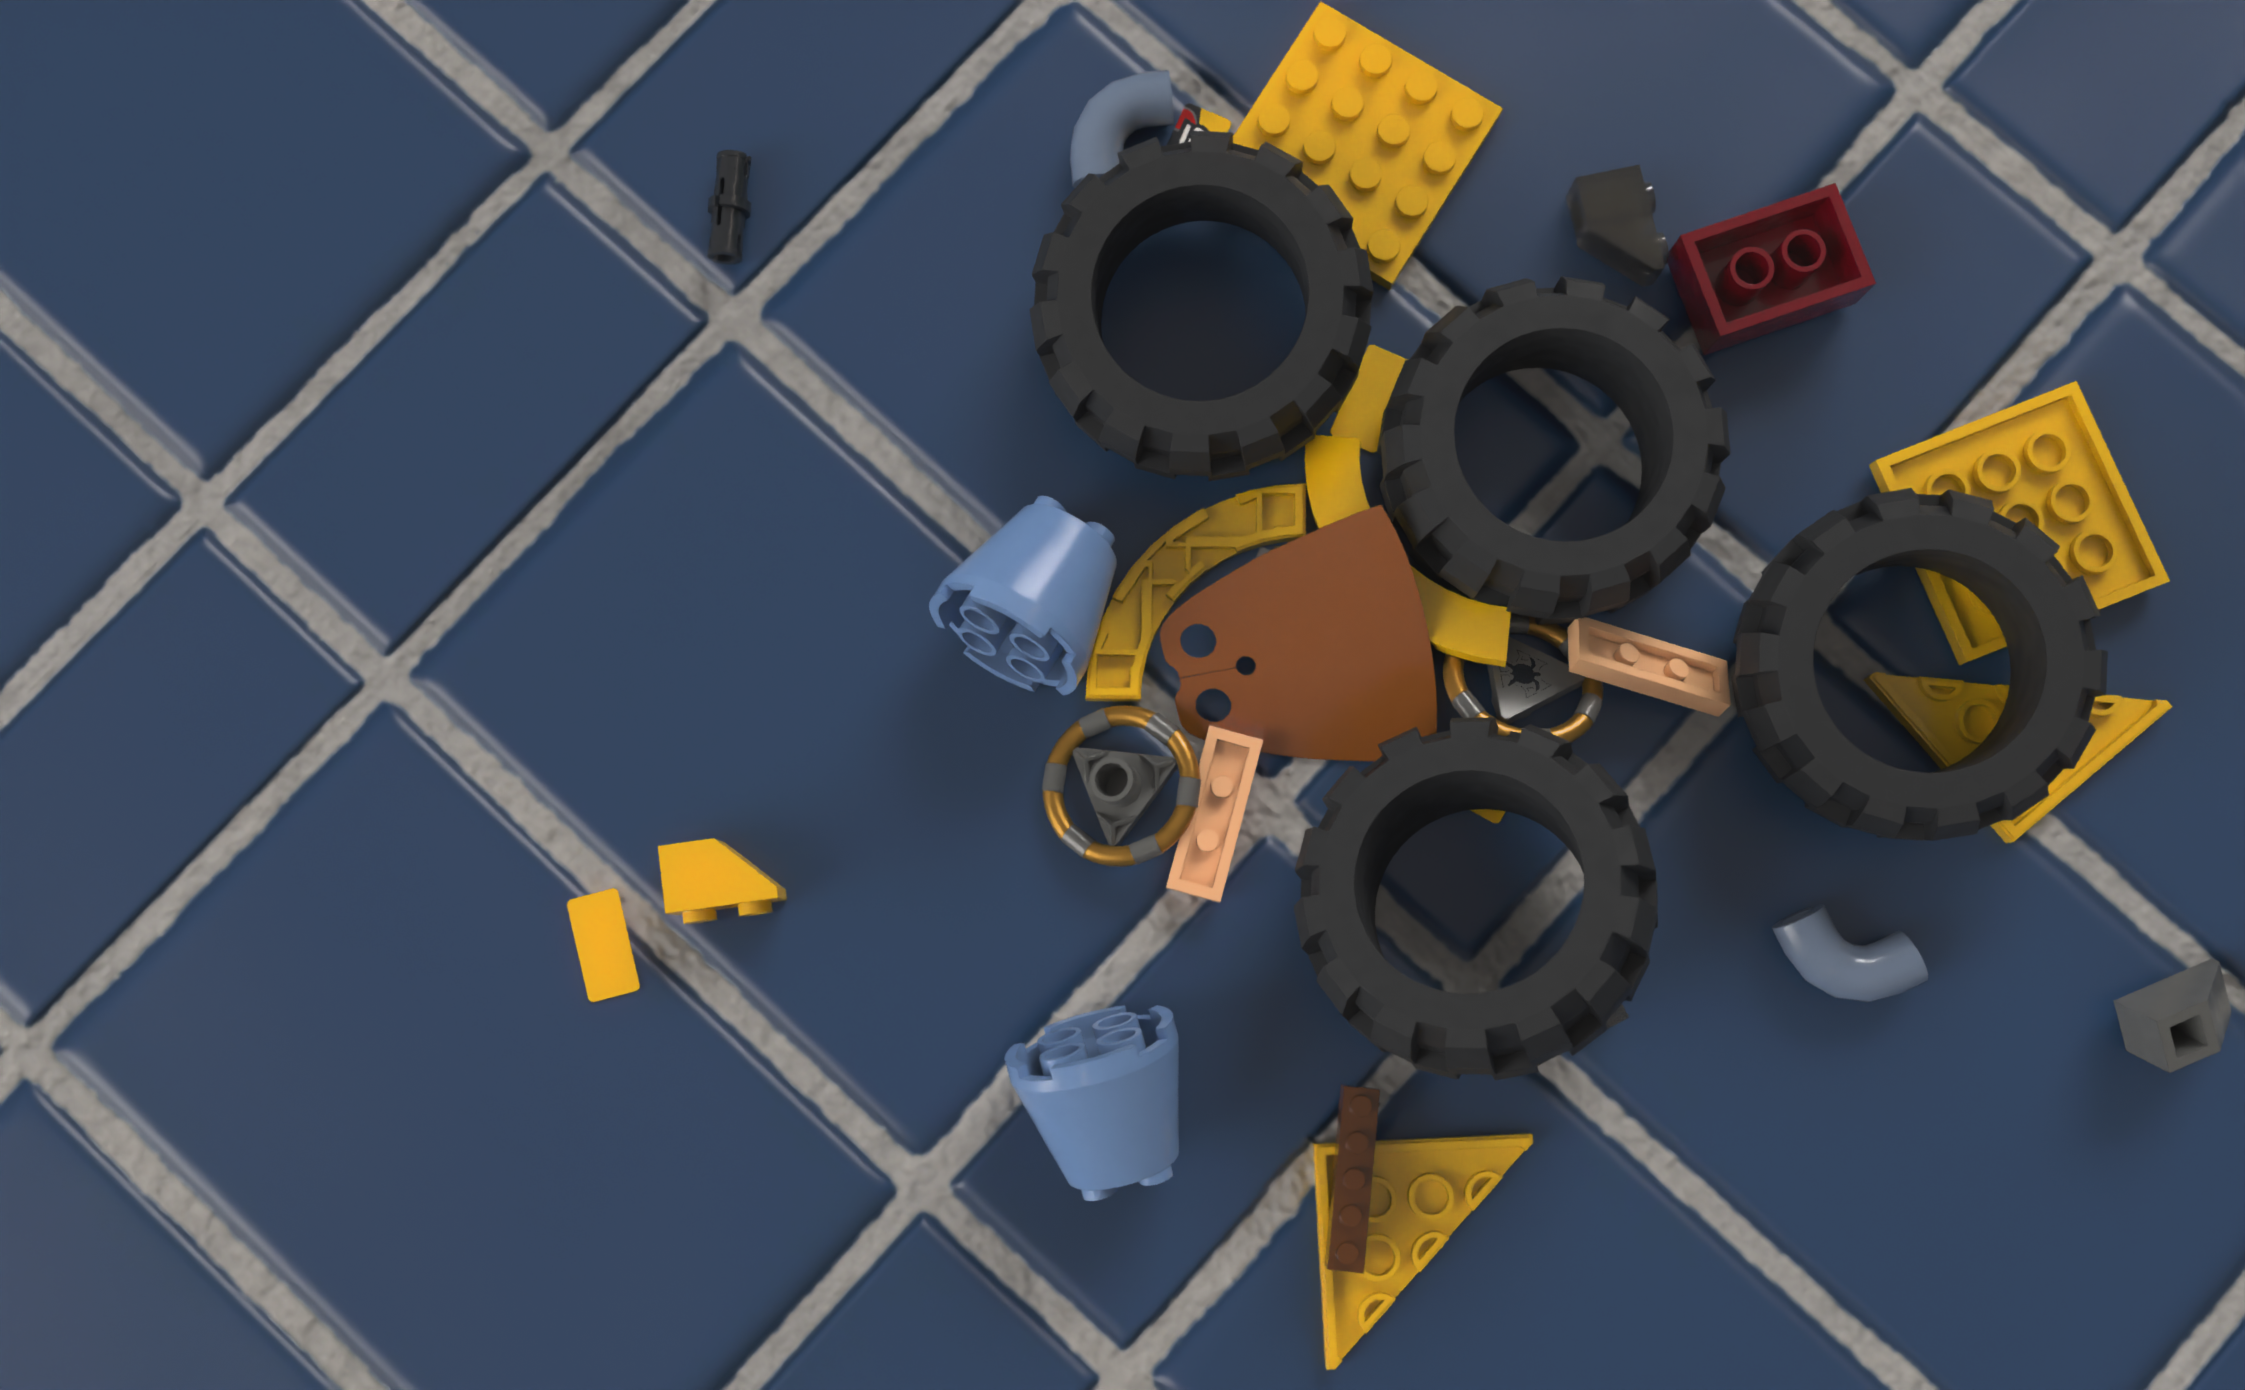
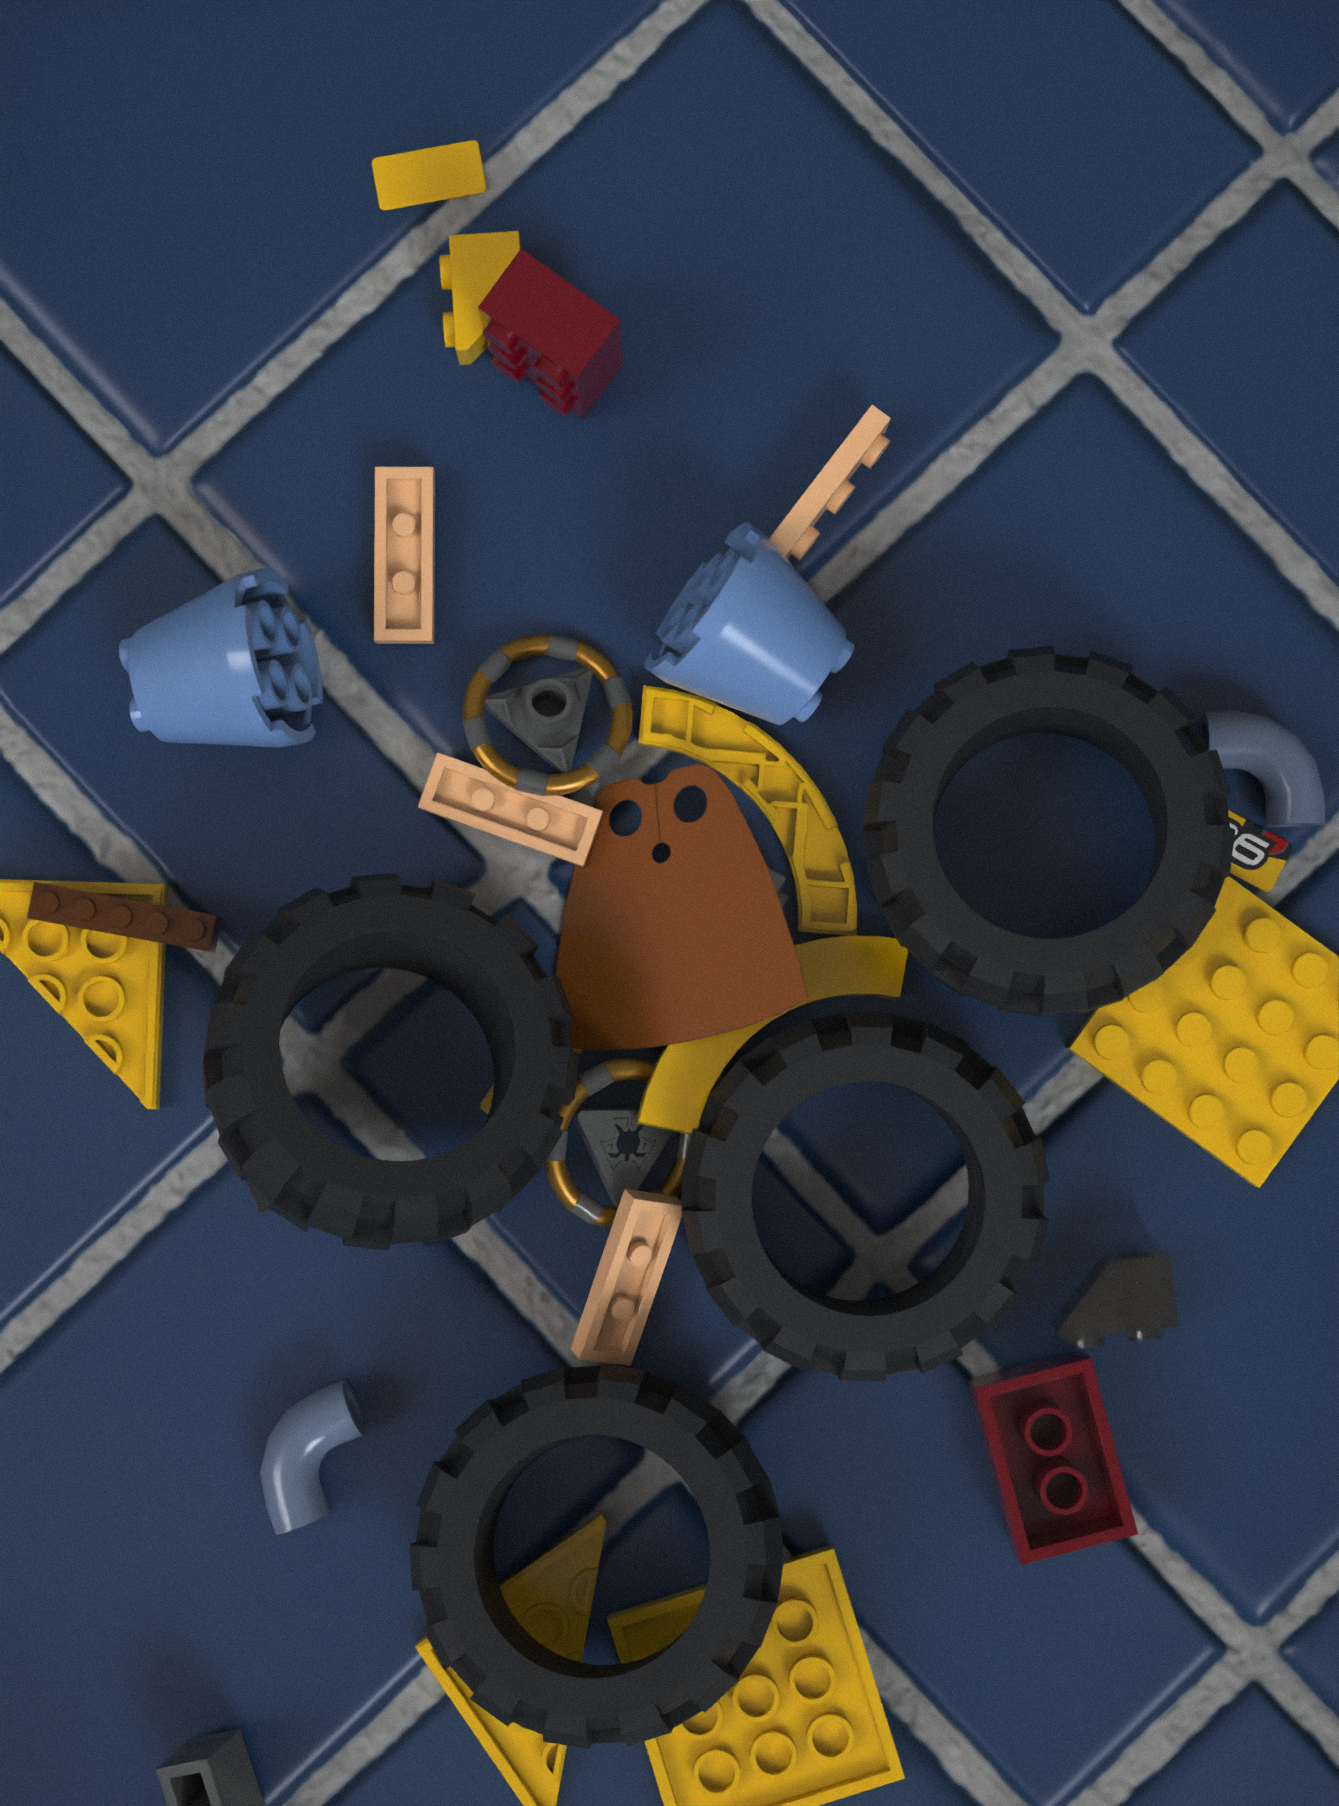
camera: 90 degrees right, 5 degrees up
(729, 207) = (1206, 343): black pin -> none
(761, 801) = (551, 336): none -> dark red brick
(884, 535) = (831, 485): none -> light nougat plate
(976, 935) = (404, 555): none -> light nougat plate
(1364, 405) = (935, 1003): yellow sticker -> none

